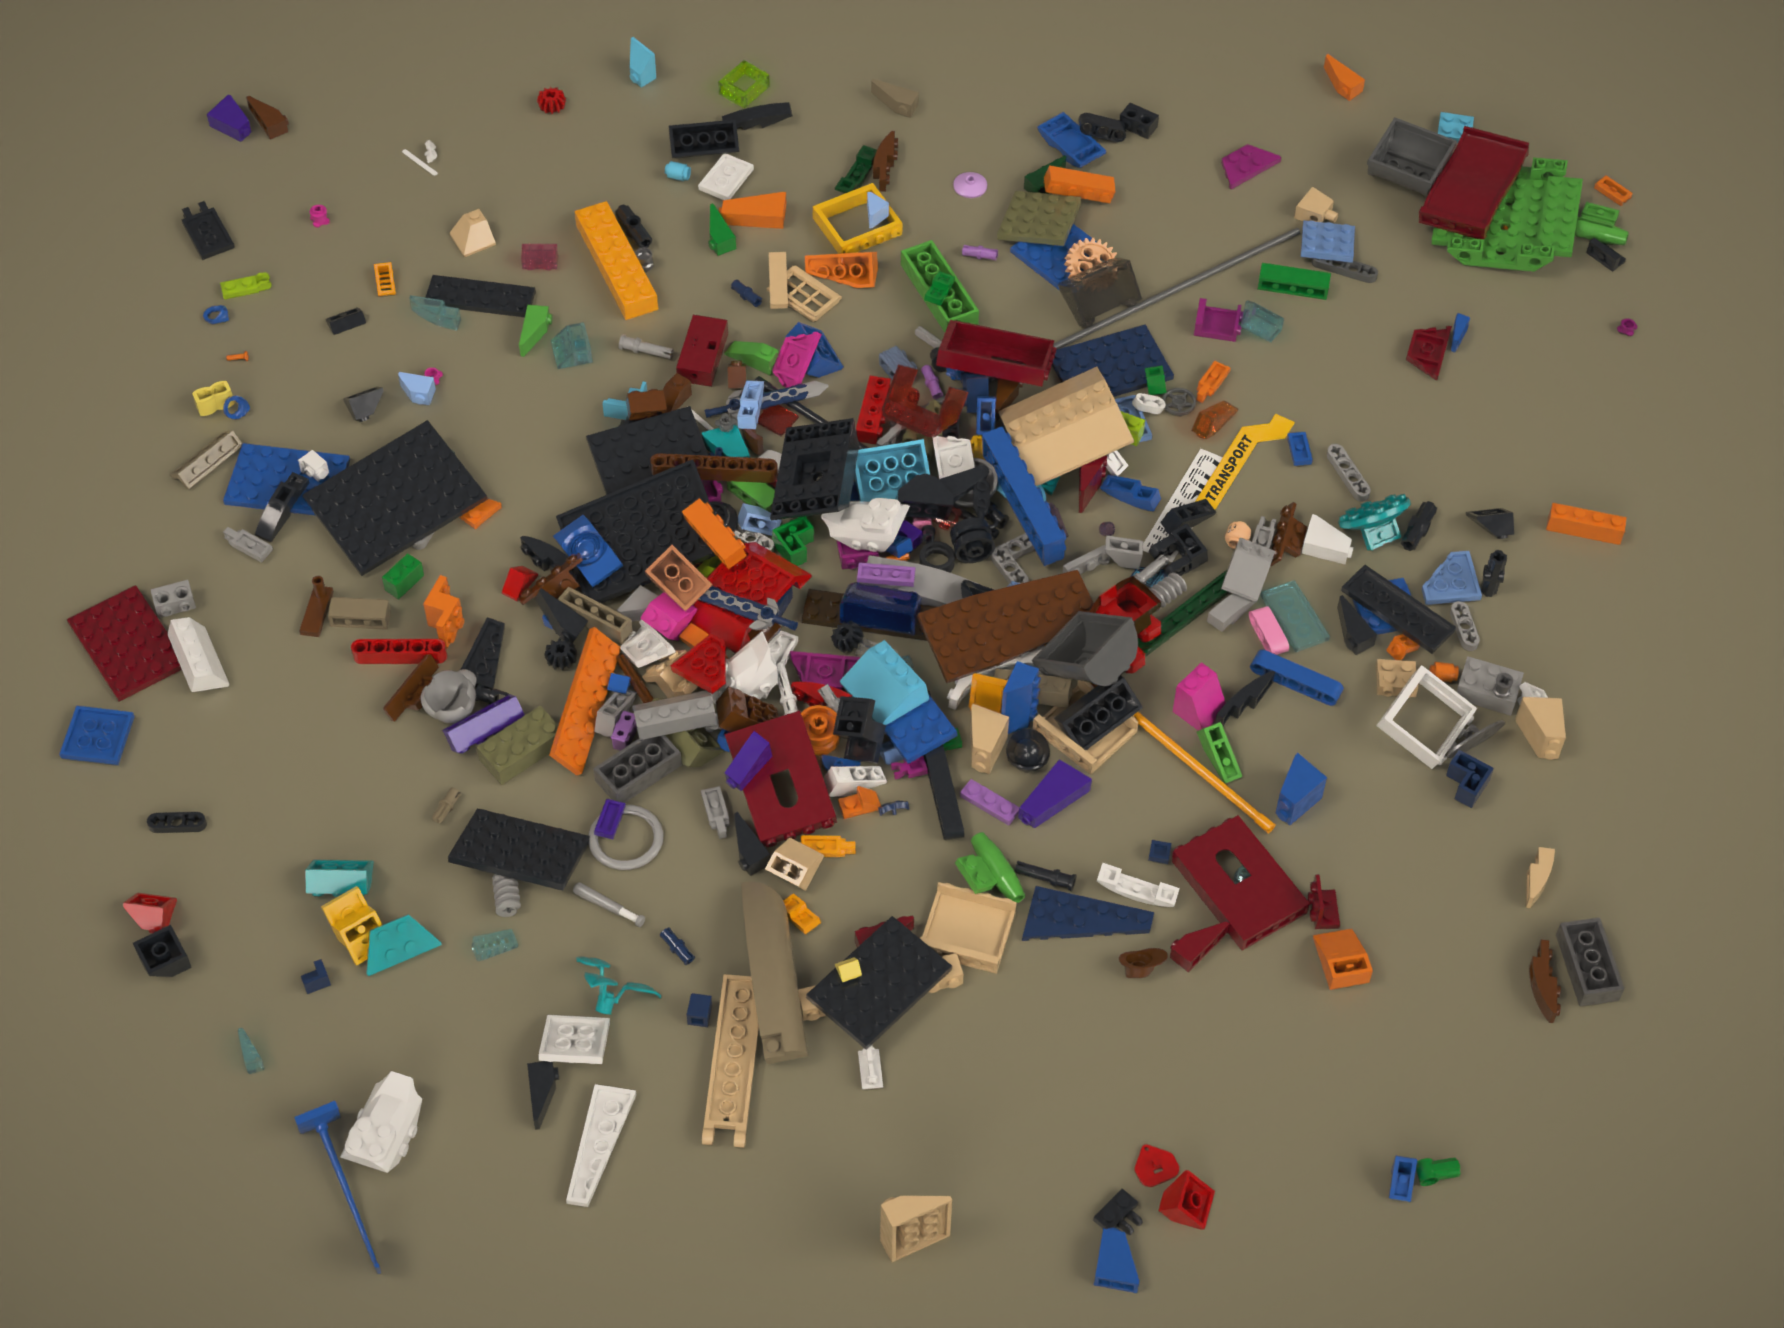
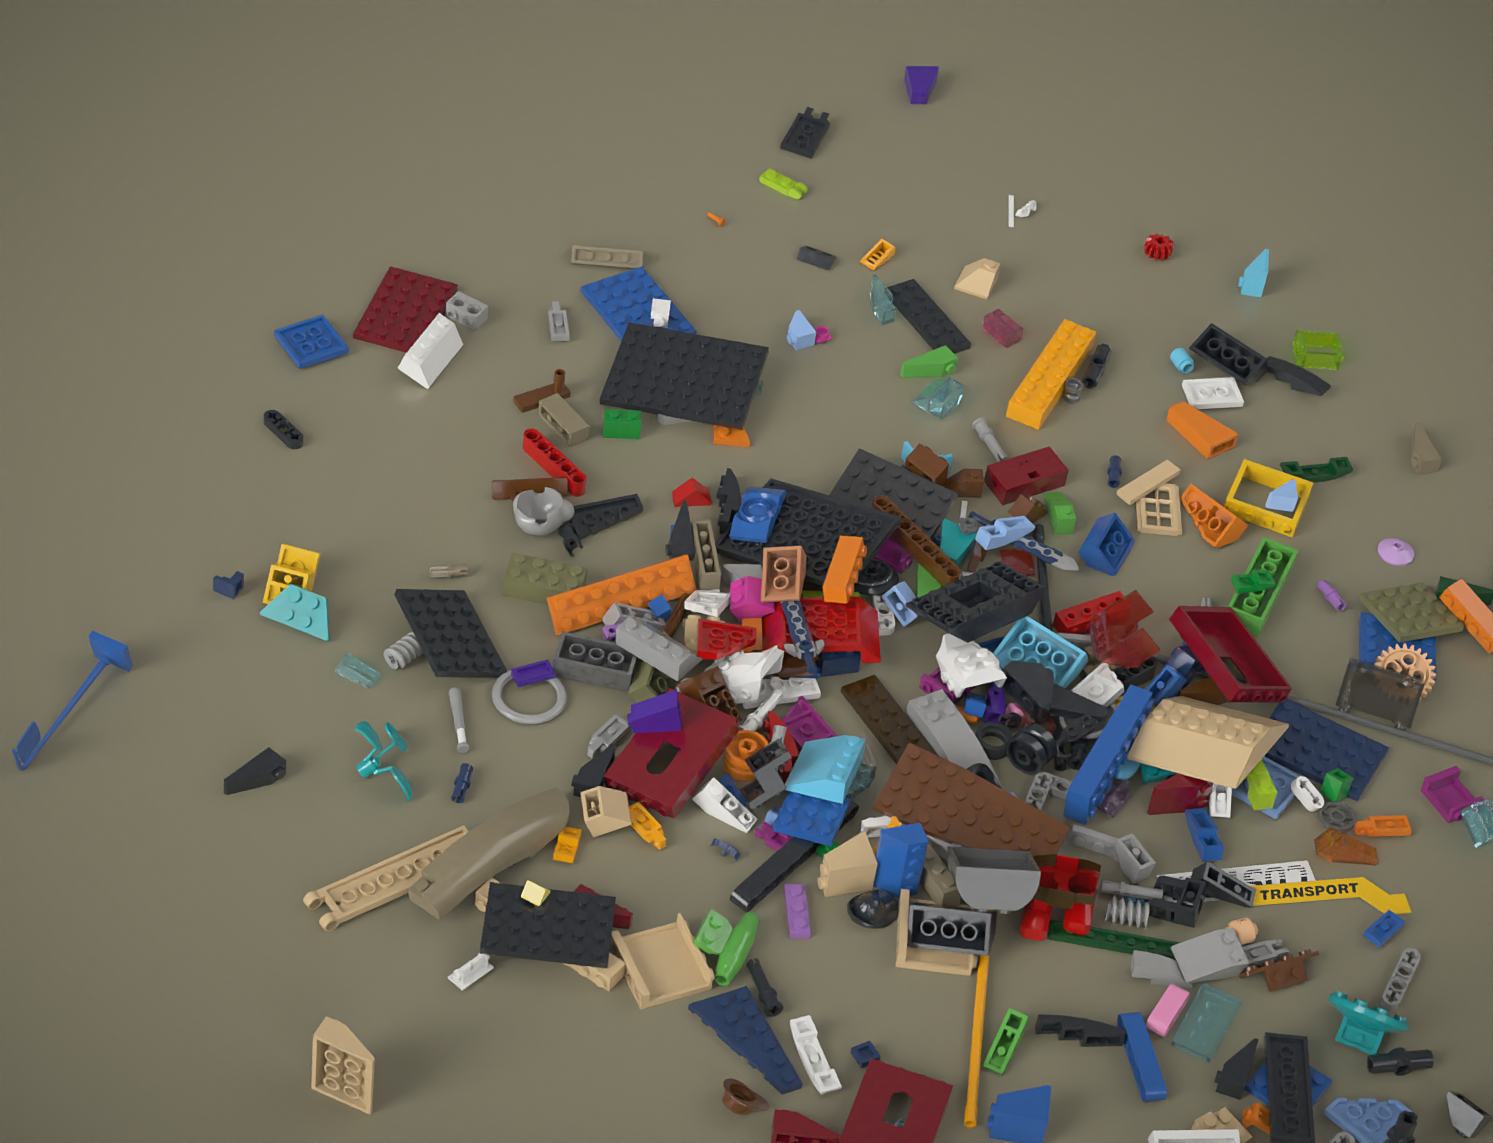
camera: 45 degrees right, 10 degrees down
(150, 910) = (194, 458): red slope -> none
(162, 953) = (164, 484): black slope -> none
(212, 398) = (660, 224): light yellow brick -> none
(222, 317) = (741, 187): blue piece -> none
(243, 407) = (664, 249): blue piece -> none
(251, 1057) = (130, 584): clear light blue slope -> none
(268, 117) = (946, 104): reddish brown slope -> none
(279, 506) = (602, 317): black slope -> none
(318, 215) = (892, 184): dark pink brick -> none
(338, 876) = (323, 539): teal slope -> none
(363, 403) = (750, 309): black slope -> none
(385, 1124) = (138, 697): white slope -> none
(443, 611) = (611, 466): orange bracket -> none
(483, 724) = (538, 546): brick -> none
(555, 582) = (715, 512): reddish brown bracket -> none
(560, 654) = (650, 554): black gear -> none
(574, 1039) = (317, 764): white plate -> none
(601, 1130) = (258, 830): white wing -> none
(699, 1010) = (418, 829): dark blue panel -> none
(721, 237) = (1151, 420): green slope -> none
(792, 538) = (907, 633): green brick -> none
(795, 358) = (1081, 533): dark pink wing -> none
(847, 636) = (853, 723): black gear -> none
(860, 803) = (709, 825): orange slope -> none
(881, 608) = (897, 721): clear blue windscreen -> none
(885, 159) = (1351, 478): reddish brown slope -> none
(886, 574) = (930, 706): medium lavender plate -> none
(891, 358) = (1158, 601): sand blue brick -> none
(932, 381) = (1165, 637): medium lavender pin -> none
(1054, 793) = (845, 947): dark purple slope -> none
(1107, 527) = (1152, 839): hinge -> none
(1199, 697) = (1041, 988): dark pink slope -> none
(1326, 542) = (1305, 1000): white slope -> none

